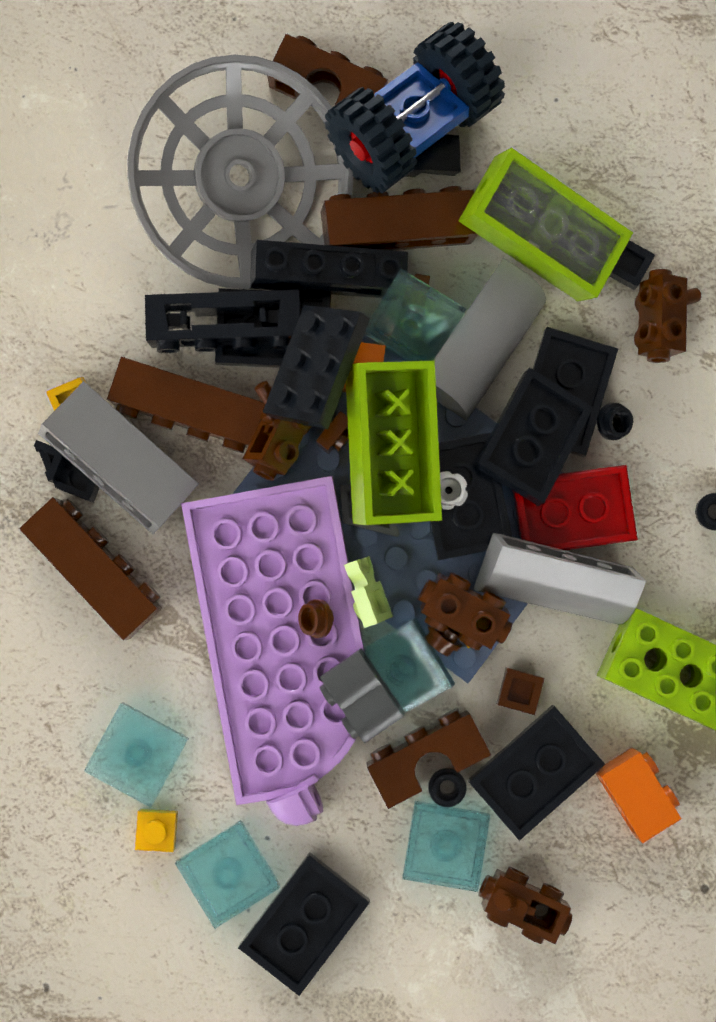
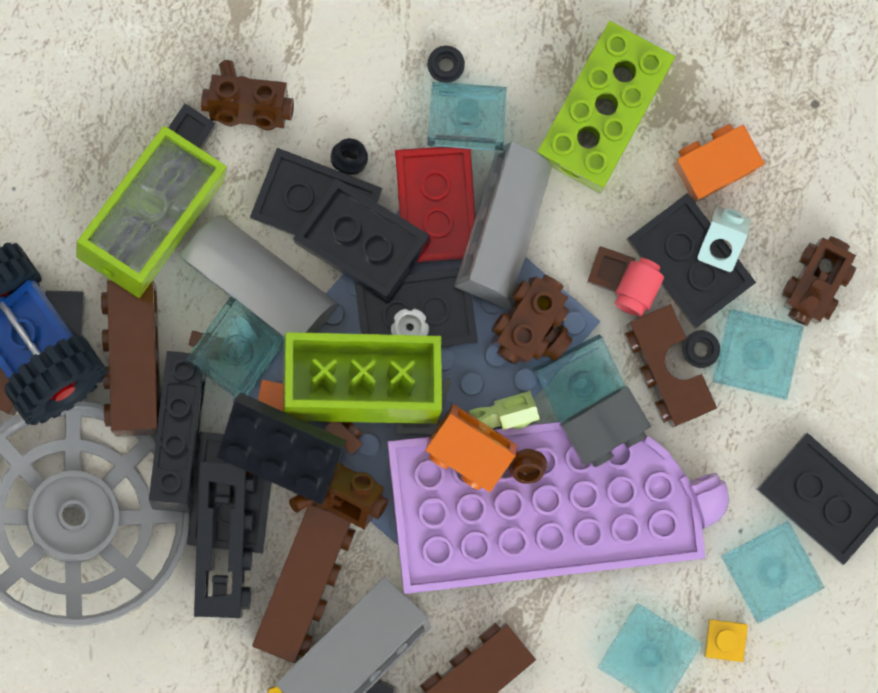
camera: 90 degrees left, 0 degrees up
(328, 559) = (470, 449): none -> orange brick
(506, 720) = (638, 287): none -> coral brick
(575, 807) = (726, 225): none -> light aqua bracket
(665, 535) = (467, 116): none -> clear light blue plate

